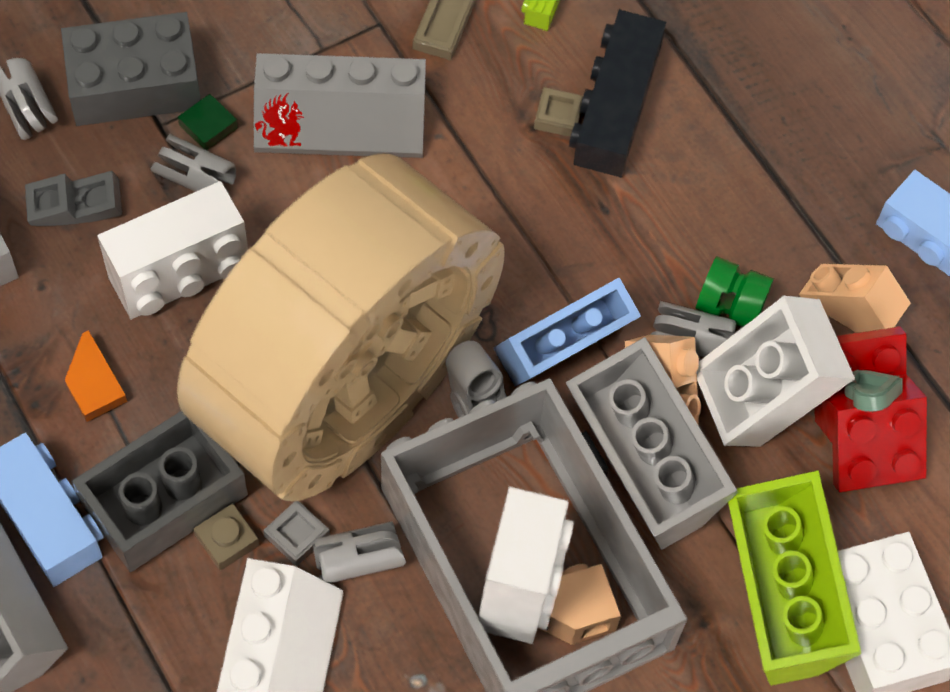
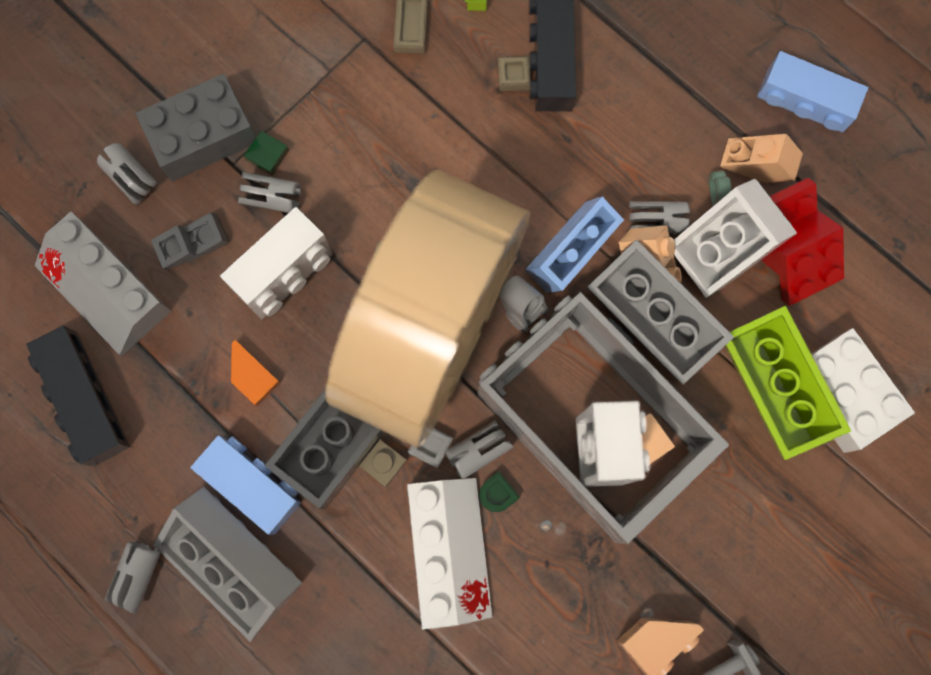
camera: 15 degrees left, 15 degrees up
(339, 105) = (358, 114): light grey slope -> none
(365, 619) = (497, 494): none -> dark green tile
(725, 278) = (680, 180): green wheel -> none
(873, 390) = (808, 233): sand green tile -> none

